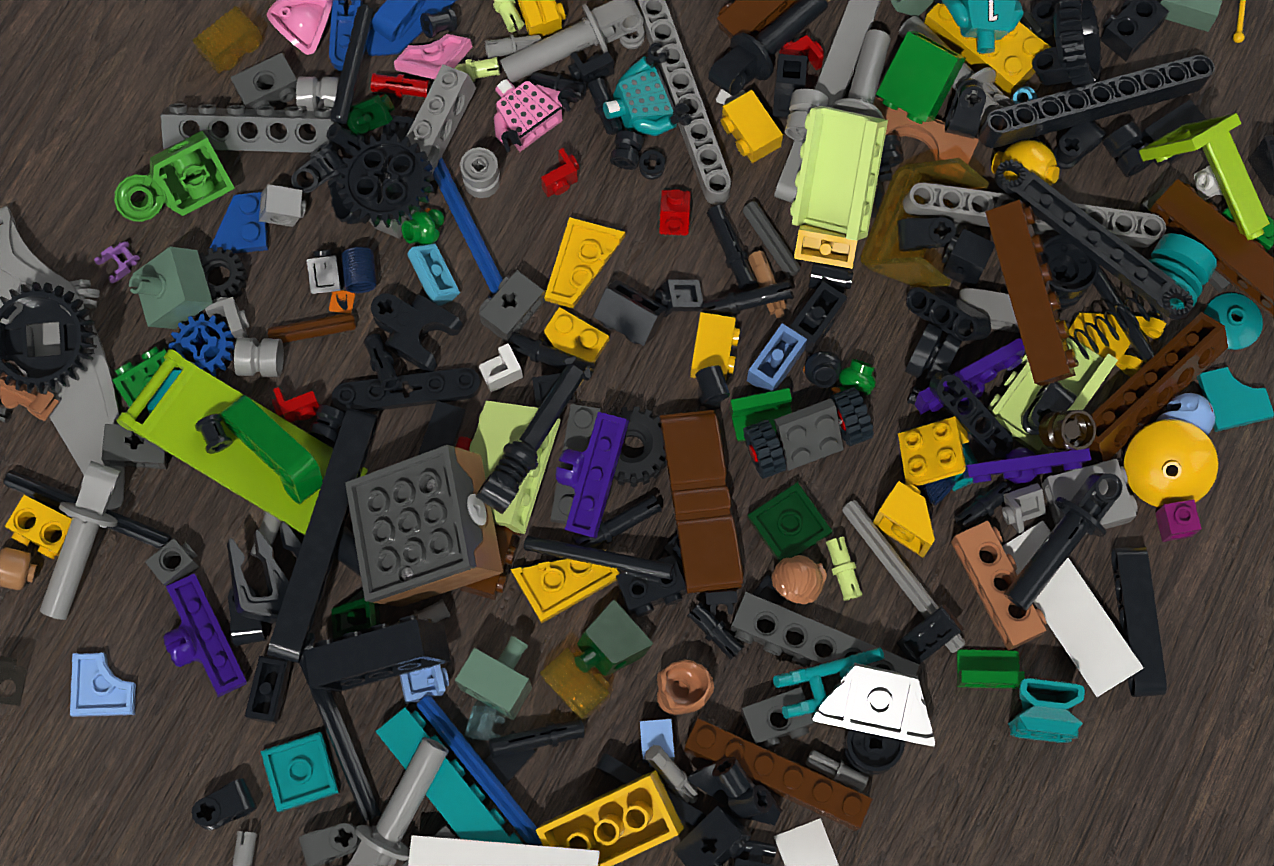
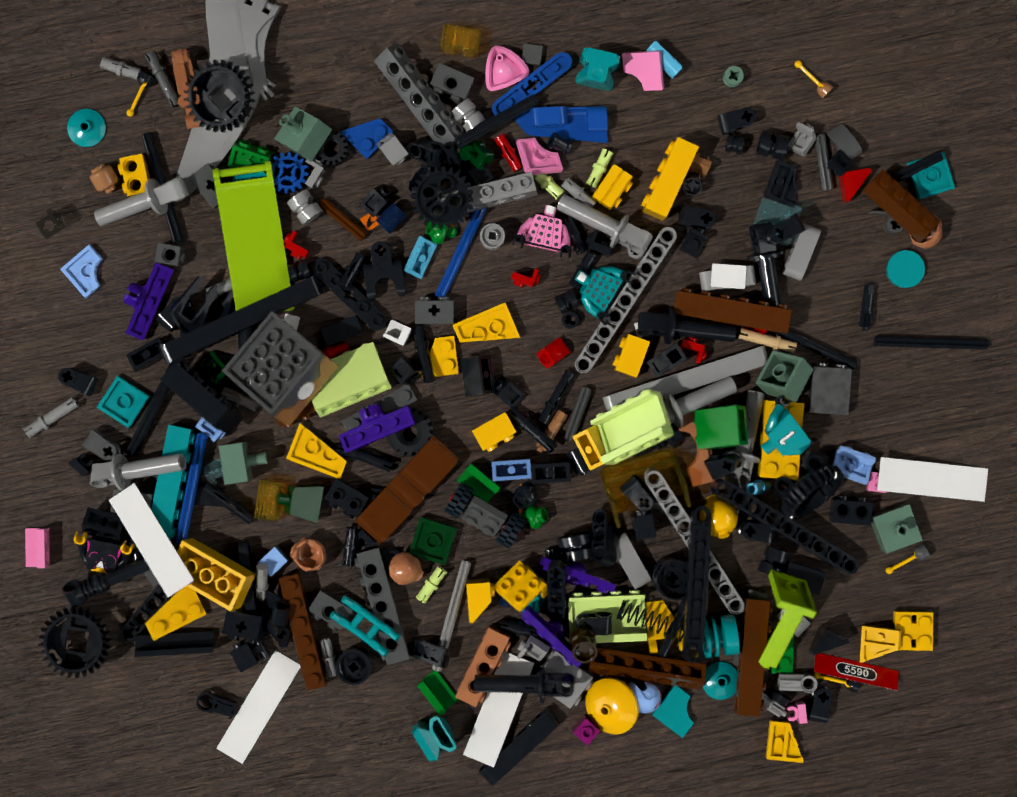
camera: 50 degrees right, 15 degrees up
(113, 253) = (300, 82): medium lavender piece -> none
(179, 176) = (366, 88): bright green brick -> none
(213, 433) = (244, 223): black bush -> none
(275, 447) = (262, 257): green beam -> none
(521, 455) = (325, 393): black piece -> none
(599, 557) = (338, 463): black piece -> none
(712, 387) = (468, 450): black piece -> none
(801, 104) = (656, 381): light grey wheel -> none
(878, 704) = (369, 656): wing -> none
(1030, 293) = (641, 574): reddish brown brick -> none

